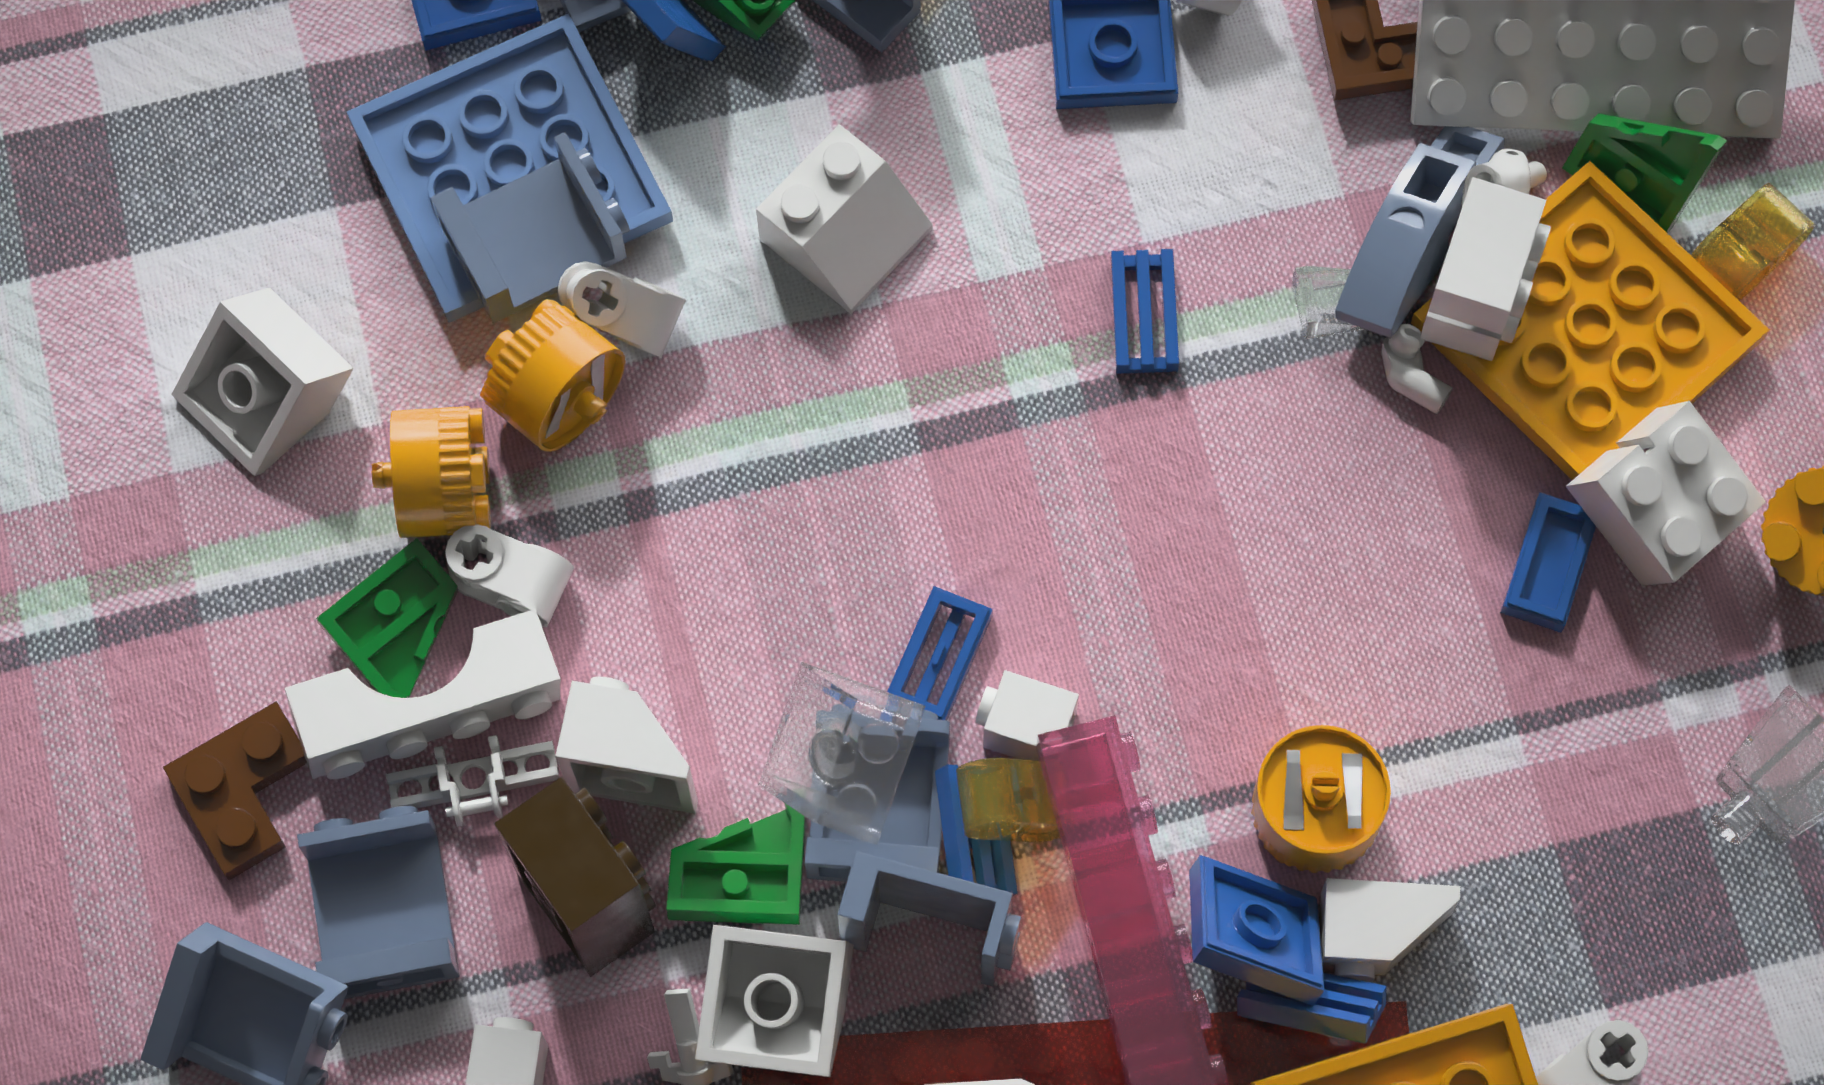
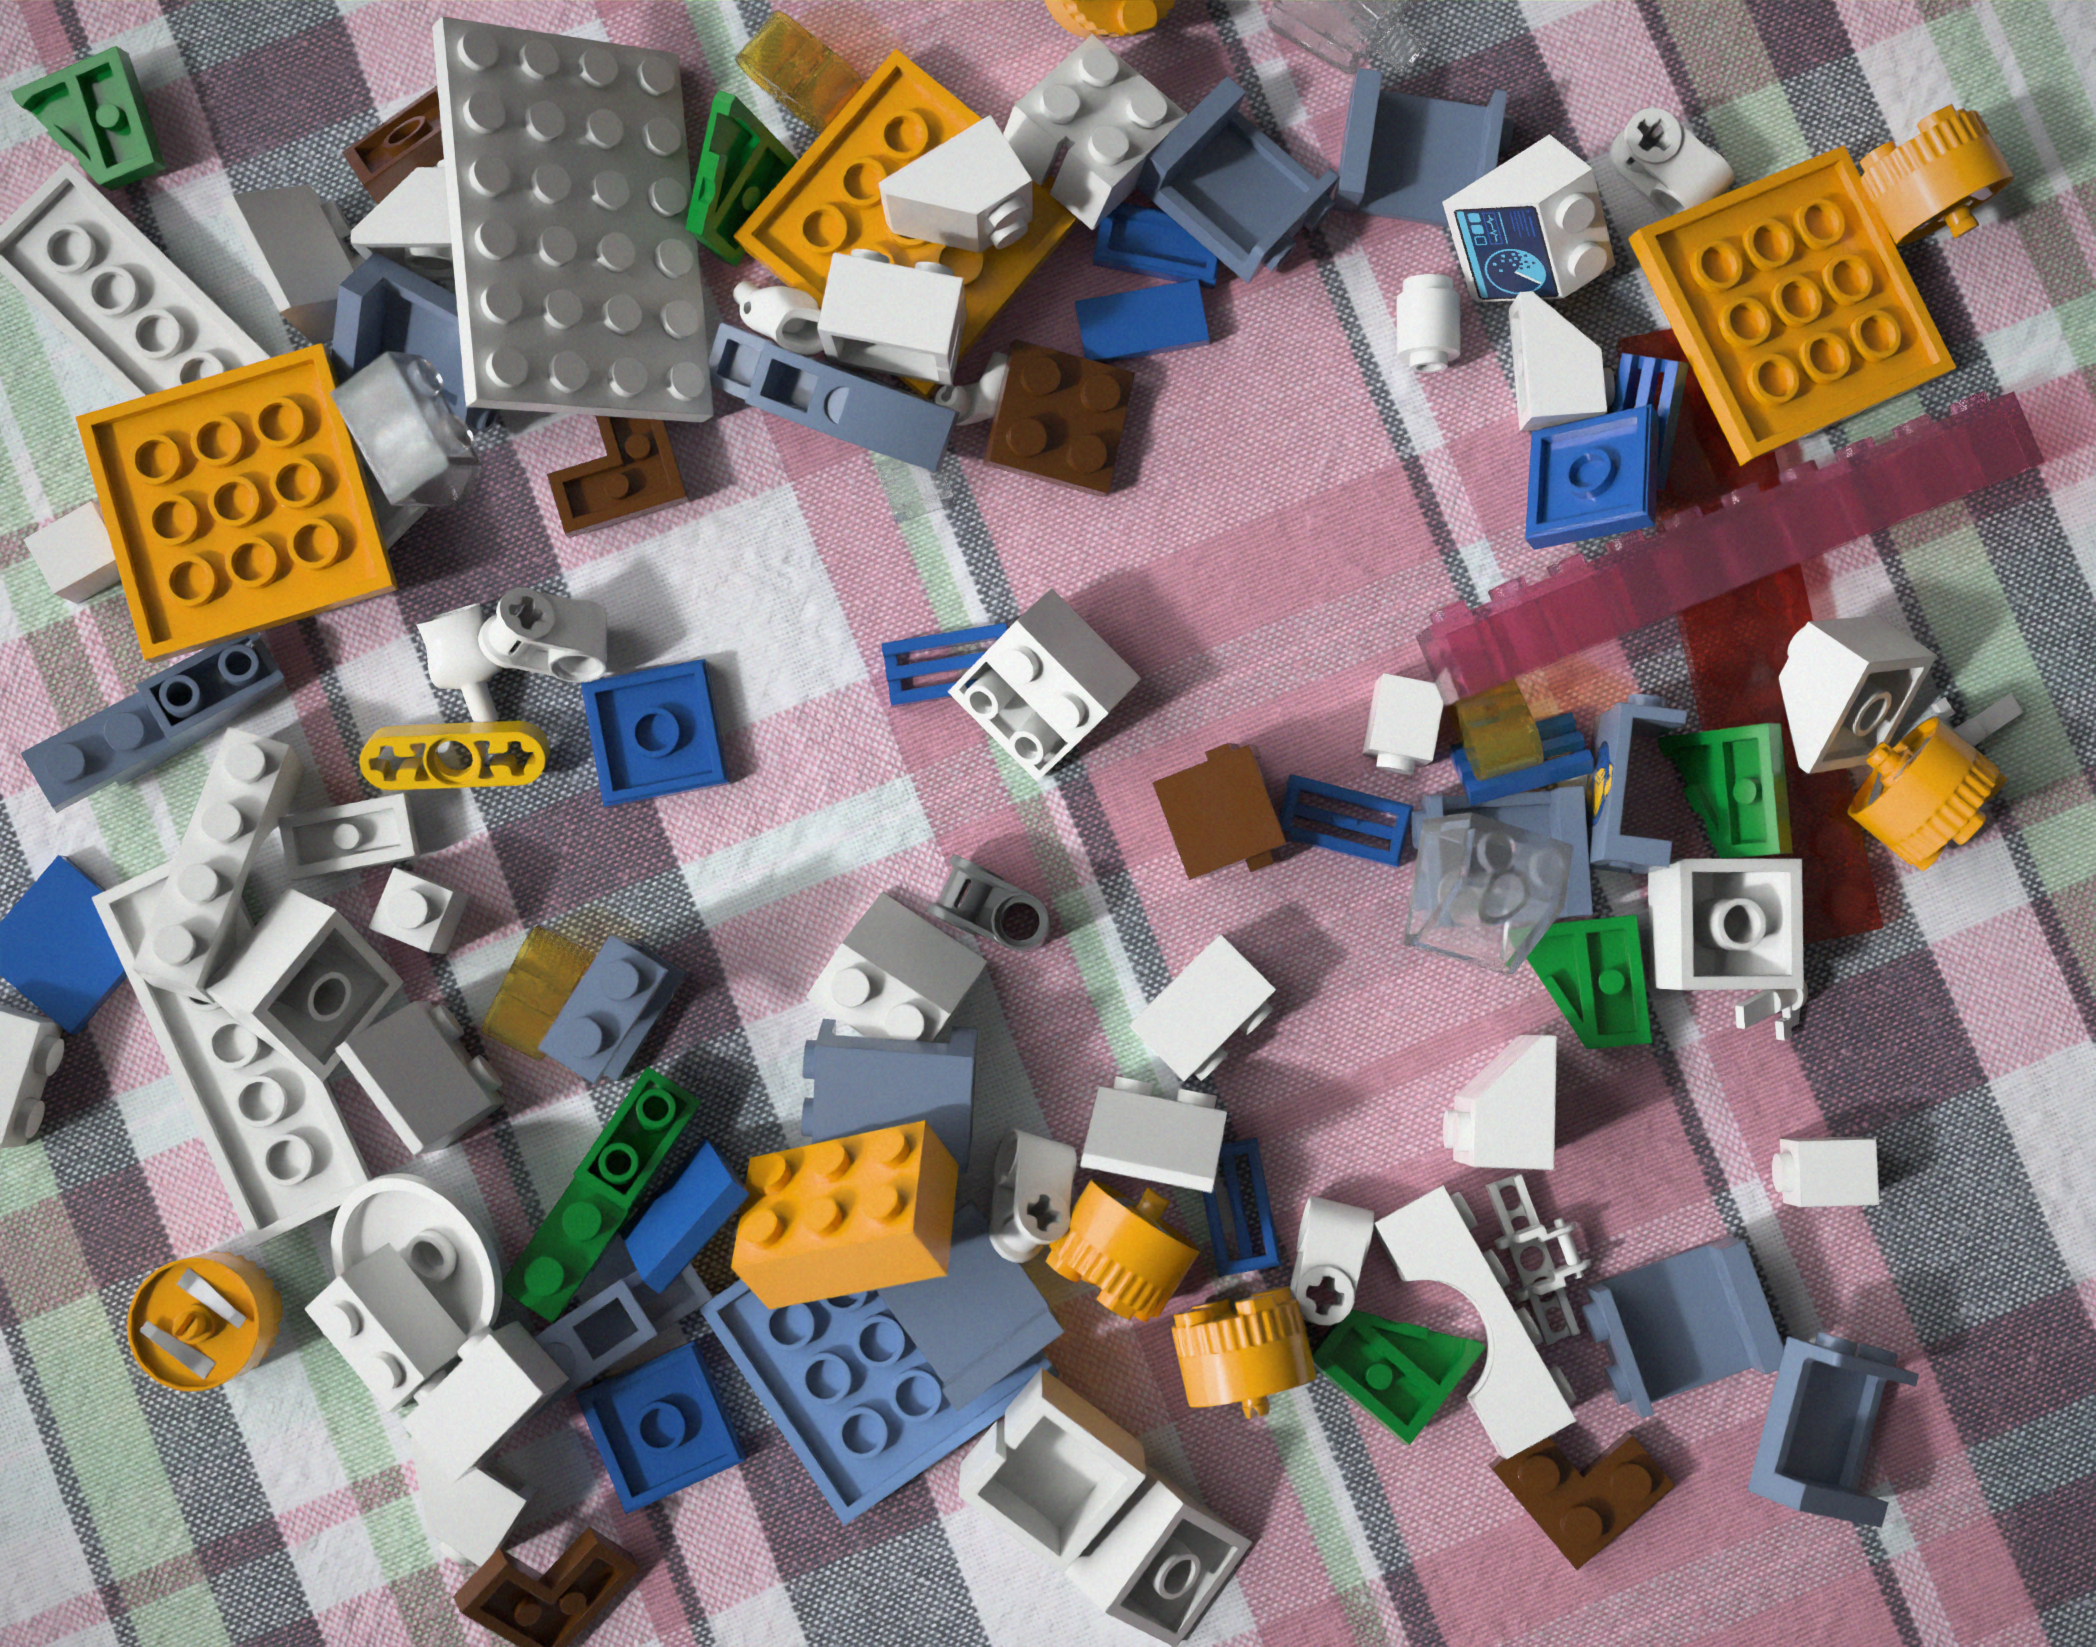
camera: 100 degrees left, 15 degrees up
(360, 284) = (1052, 1471): none -> white piece
(575, 528) = (1248, 1261): none -> blue tile
(578, 875) = (1659, 1128): dark brown brick -> none
(628, 127) = (847, 1216): none -> light orange brick
(653, 420) = (1155, 1135): none -> white slope
(729, 196) = (891, 1083): none -> sand blue panel
(771, 490) = (1203, 1009): none -> white brick
(903, 304) = (987, 905): none -> dark grey piece
(911, 1030) = (1736, 786): none -> green wing
(959, 523) = (1222, 813): none -> reddish brown plate
(1113, 385) = (1044, 684): none -> white slope
(1320, 798) = (1449, 431): light orange piece -> none
(1378, 437) = (1059, 418): none -> reddish brown plate
(1440, 805) = (1428, 323): none -> white brick
(1469, 533) = (1142, 322): none -> blue tile
(1528, 905) = (1531, 226): none -> white slope
(1604, 632) = (1234, 185): none -> sand blue panel
(1611, 353) = (962, 193): none -> white slope
(1623, 823) = (1414, 151): none -> sand blue panel

